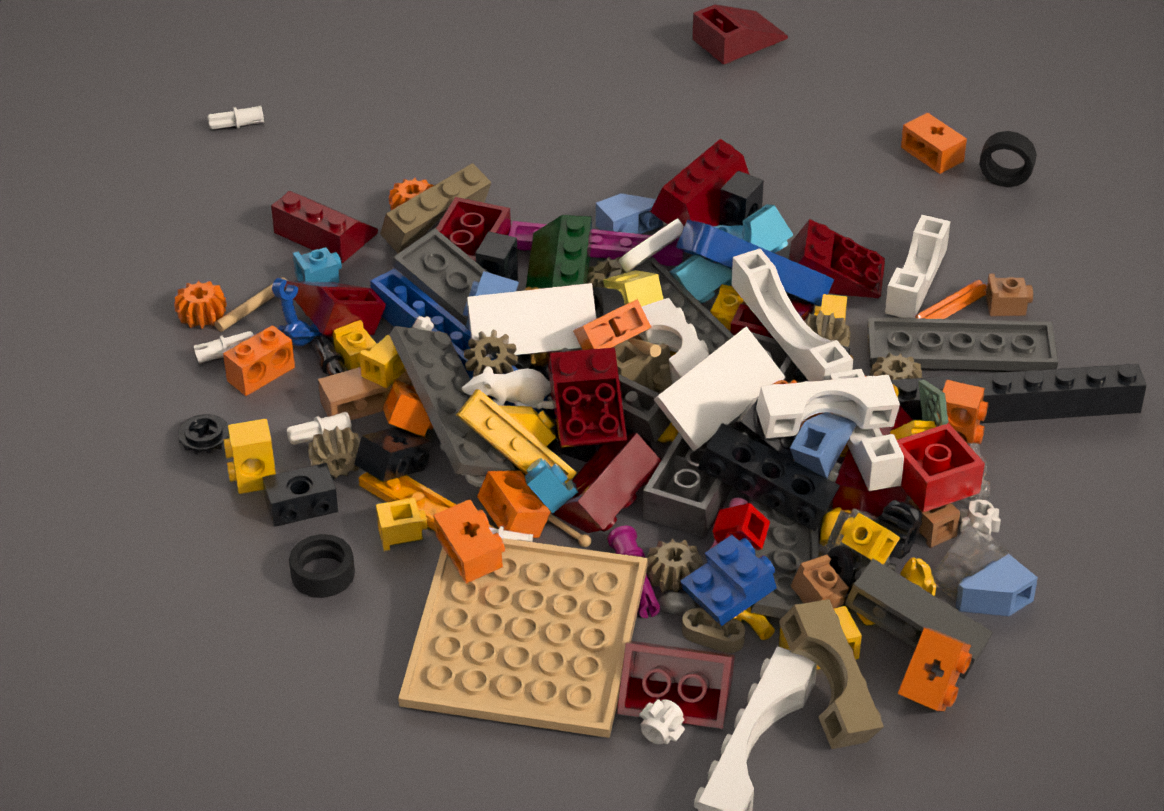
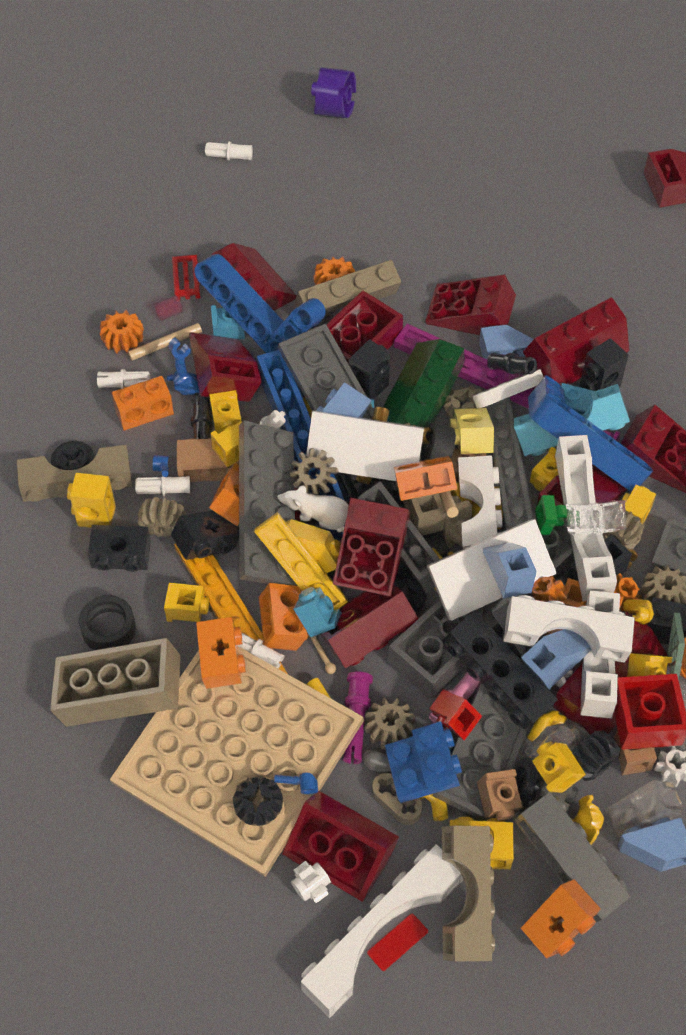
camera: 20 degrees right, 15 degrees up
(182, 457) = (42, 480): none -> dark tan arch
(241, 272) = (168, 308): none -> clear pink hinge
(251, 254) = (187, 292): none -> red tile
(307, 411) = (160, 464): none -> blue hand
(331, 36) = (334, 92): none -> dark purple brick
(350, 241) = (250, 309): none -> blue beam
(365, 603) = (116, 682): none -> dark tan brick
(562, 673) = (267, 810): none -> black gear
(571, 188) = (472, 304): none -> dark red slope
(616, 628) = (307, 782): none -> blue hand
(645, 220) = (512, 363): none -> black pin
(745, 369) = (511, 568): none -> medium blue slope
(756, 326) = (549, 515): none -> green tile
(776, 753) = (397, 942): none -> red sticker
(802, 313) = (596, 517): none -> clear slope

